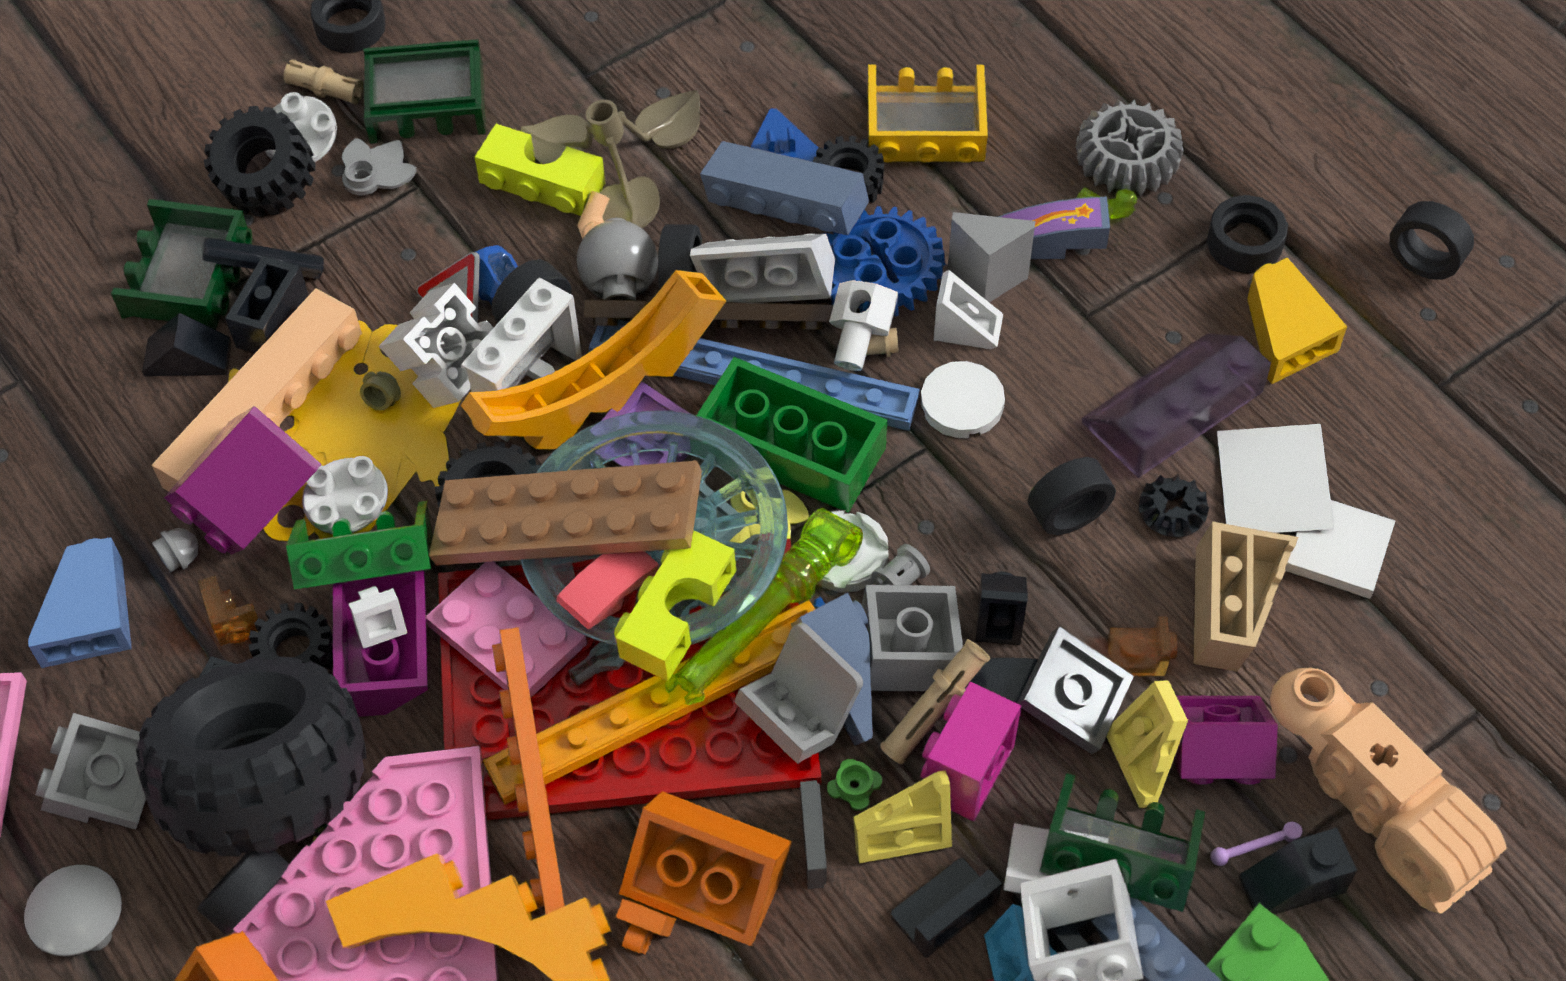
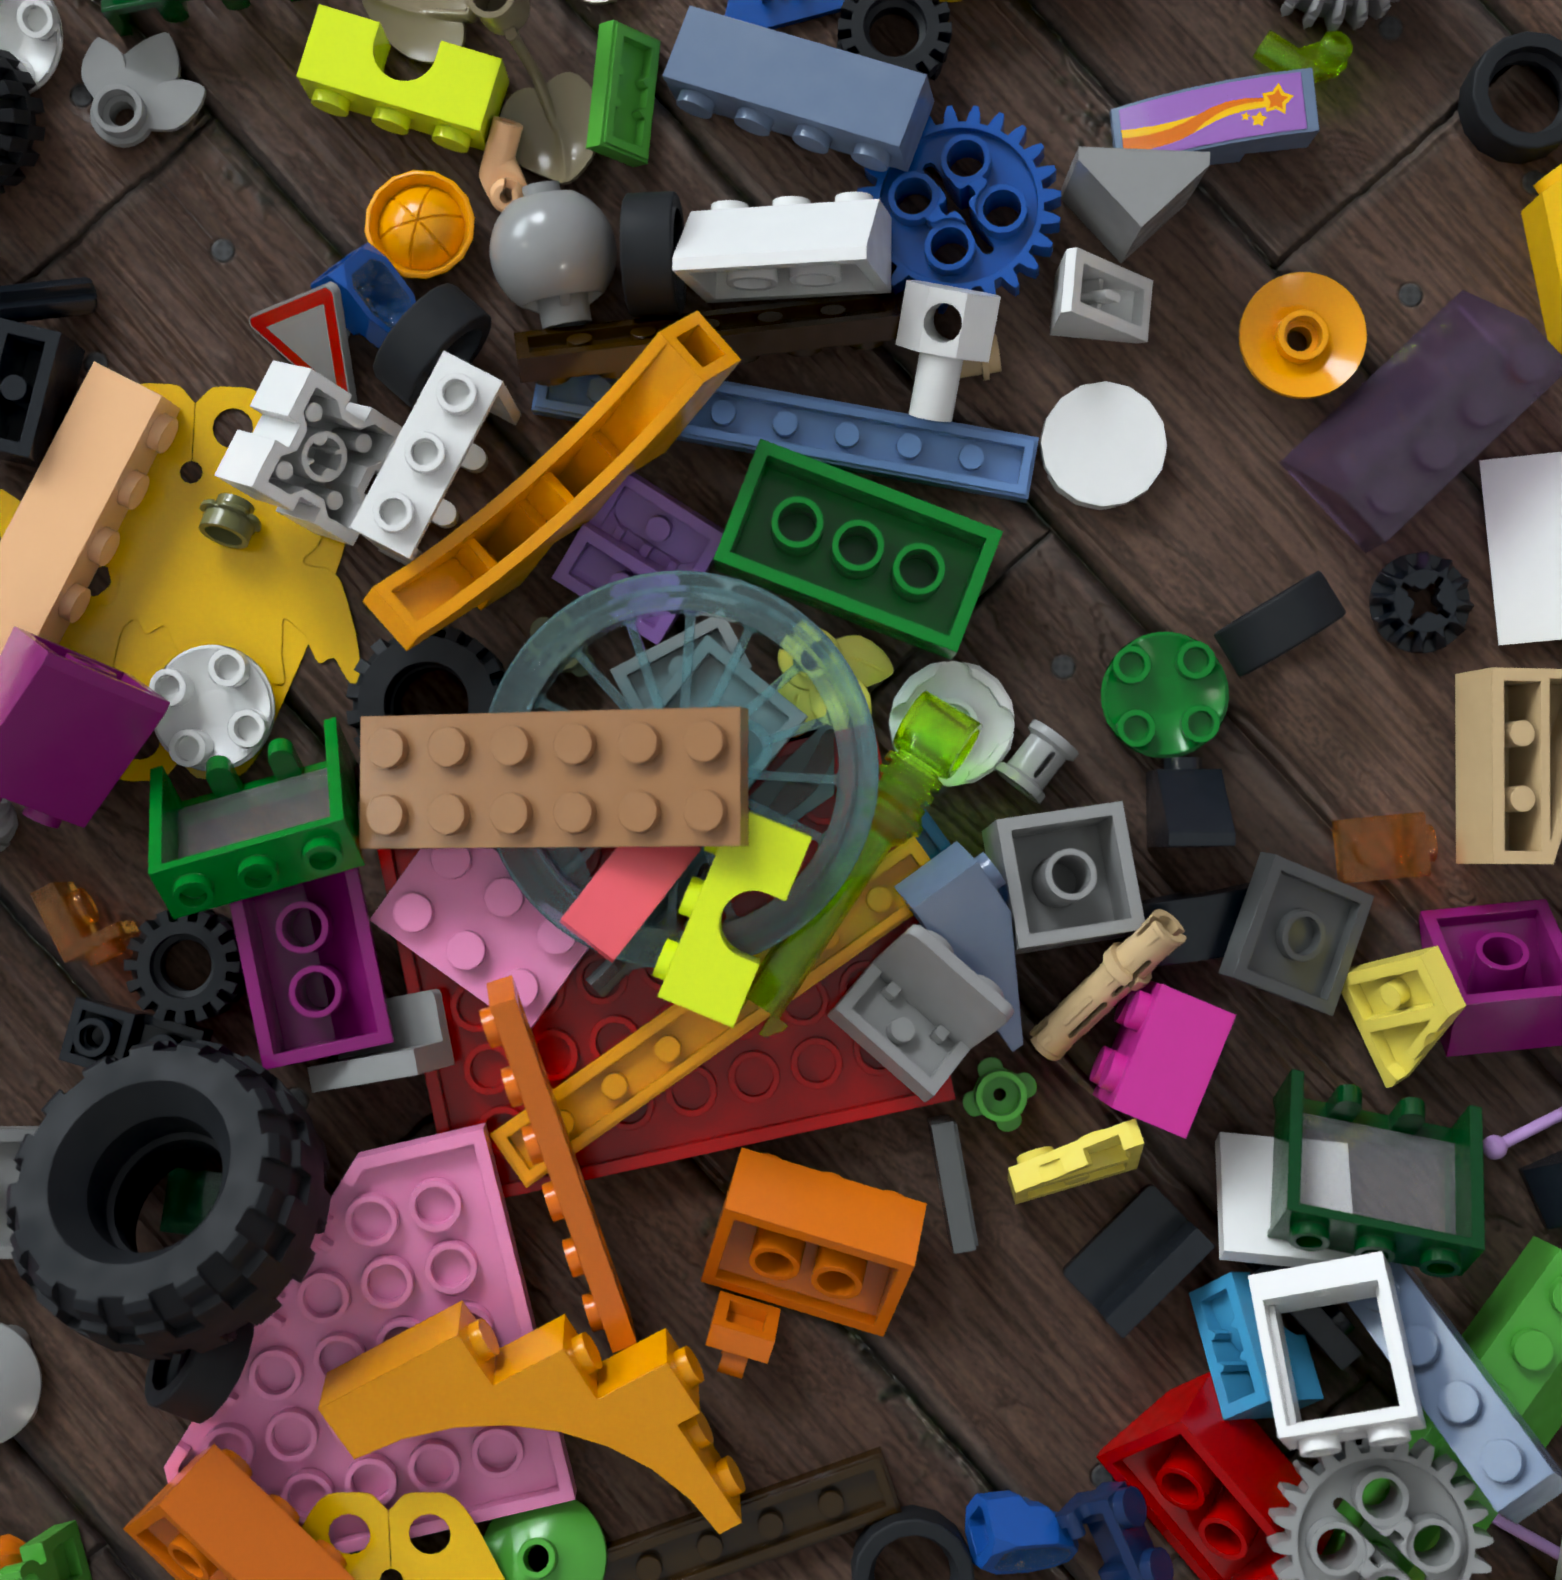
camera: 10 degrees left, 30 degrees up
(377, 616) = (303, 957): white tile -> none
(421, 708) = (419, 1046): none -> light grey panel
(537, 239) = (420, 223): none -> light orange hat
(674, 187) = (623, 93): none -> bright green plate
(993, 541) = (1164, 694): none -> green dish
(1102, 333) = (1319, 311): none -> light orange dish

